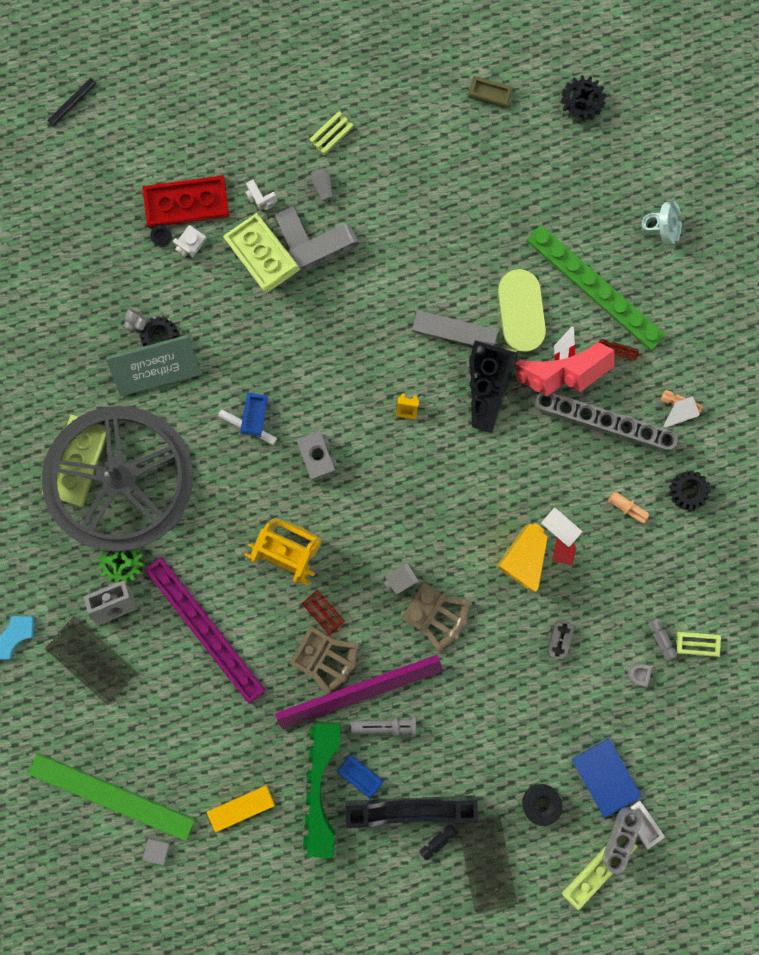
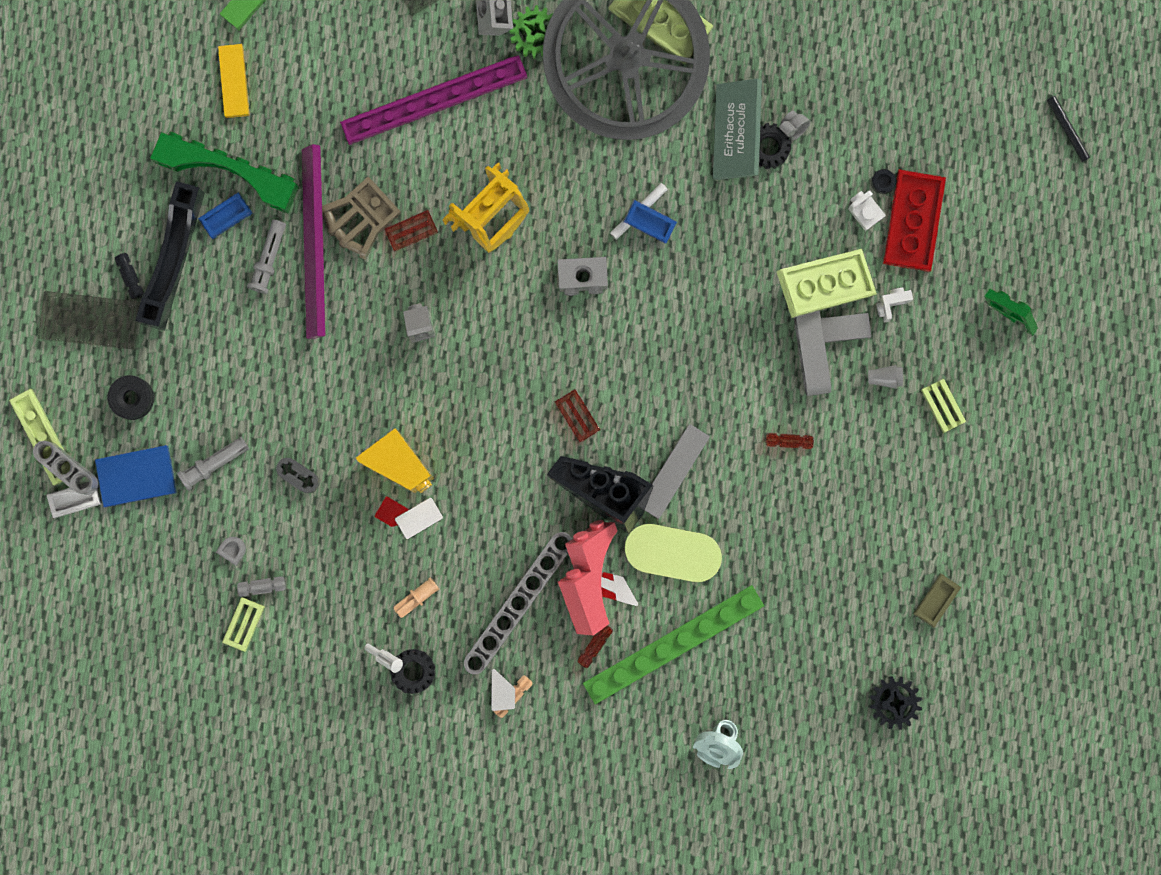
camera: 105 degrees right, 0 degrees up
(236, 91) = (1010, 309): none -> green wing
(399, 245) = (789, 441): none -> clear red axle
(407, 407) = (604, 389): yellow tile -> none
(424, 609) = (379, 340): dark tan plate -> none
(446, 409) = (588, 433): none -> clear red tile
(581, 721) = (204, 468): none -> light grey pin
(688, 515) = (385, 658): none -> white axle

